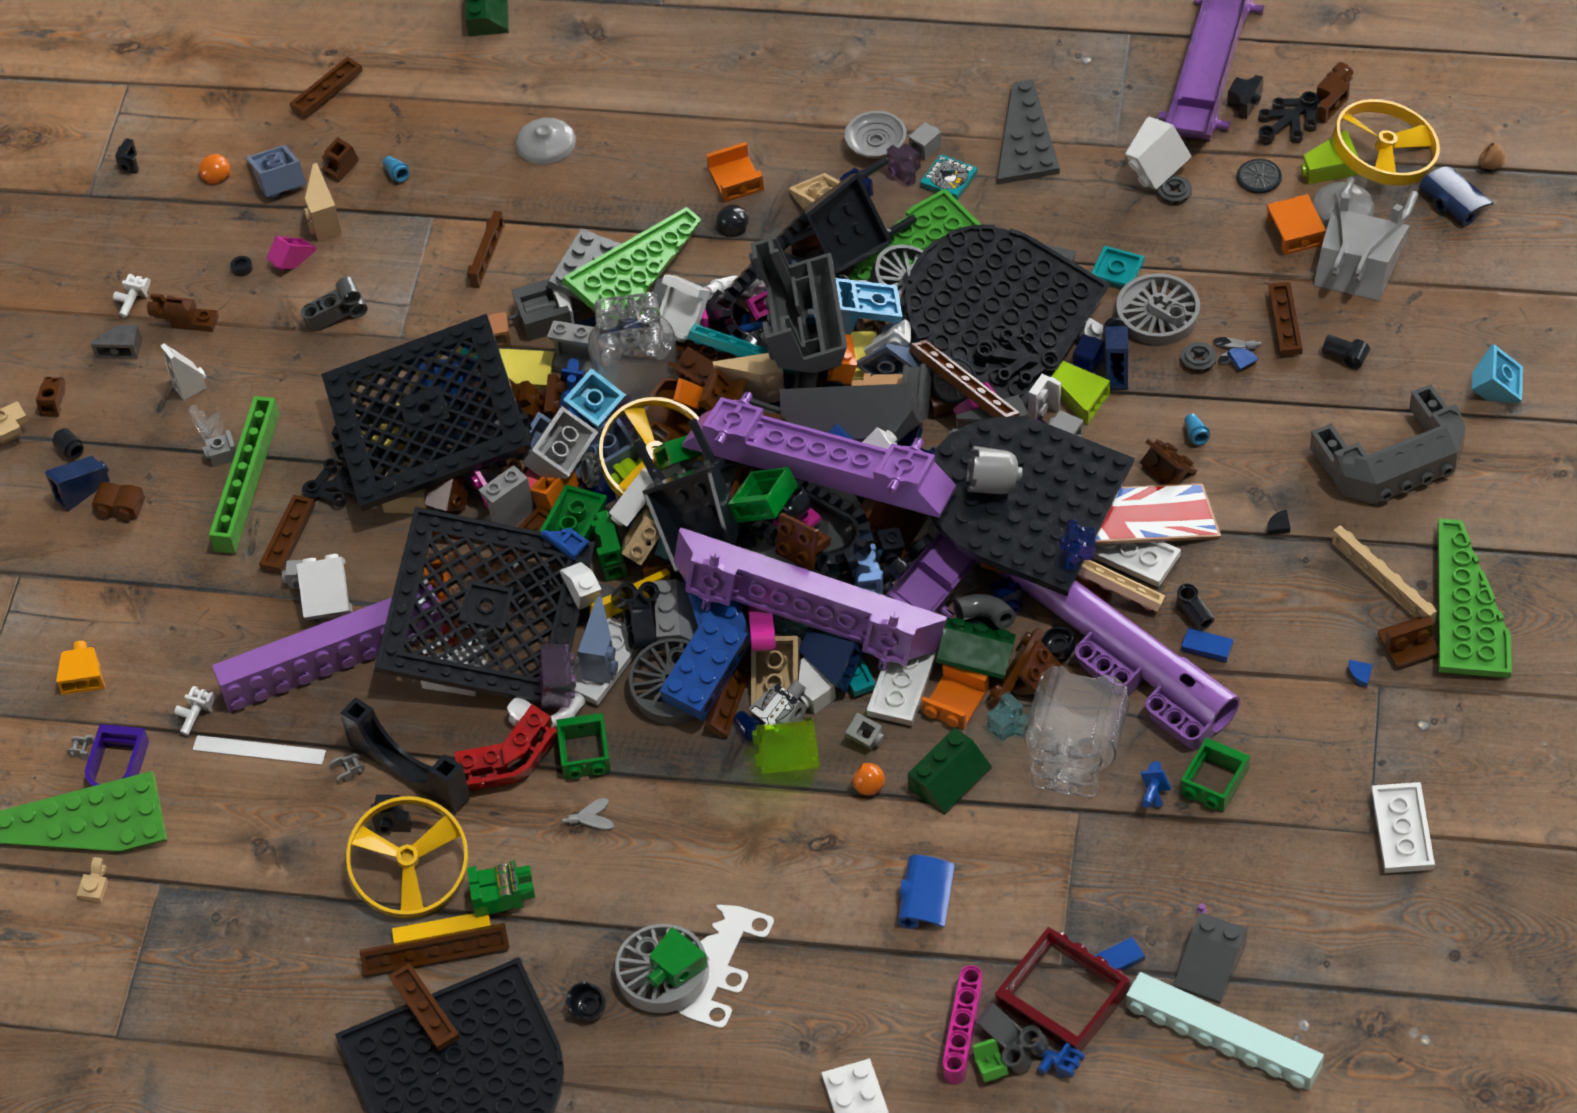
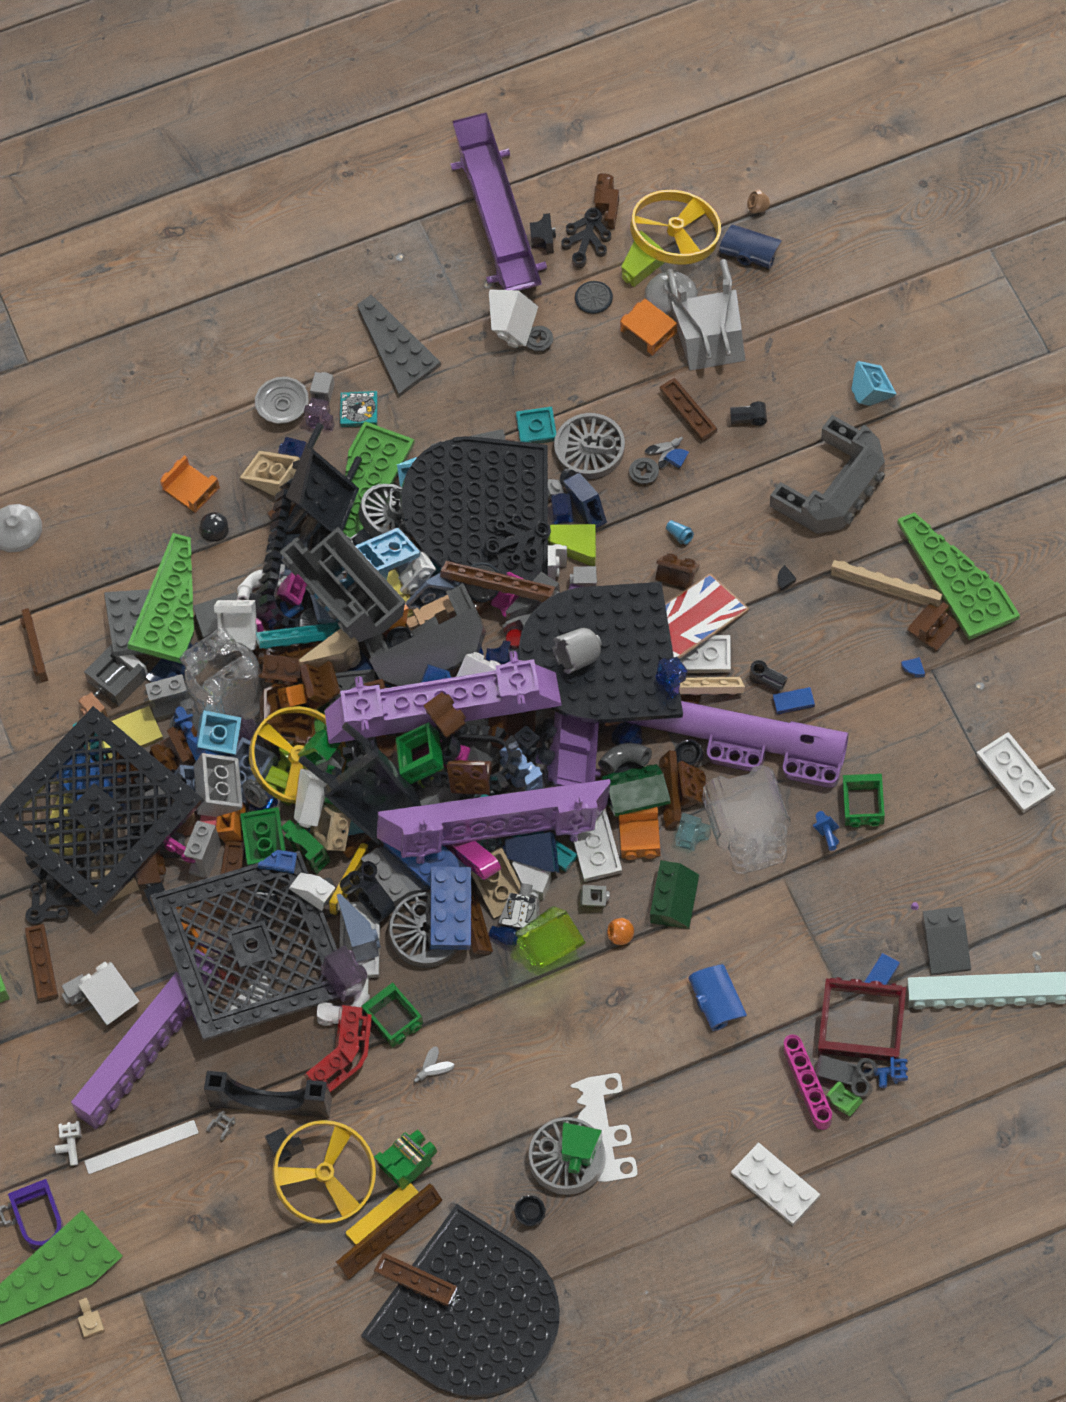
camera: 30 degrees left, 10 degrees up
(806, 464) = (444, 714): none -> reddish brown brick

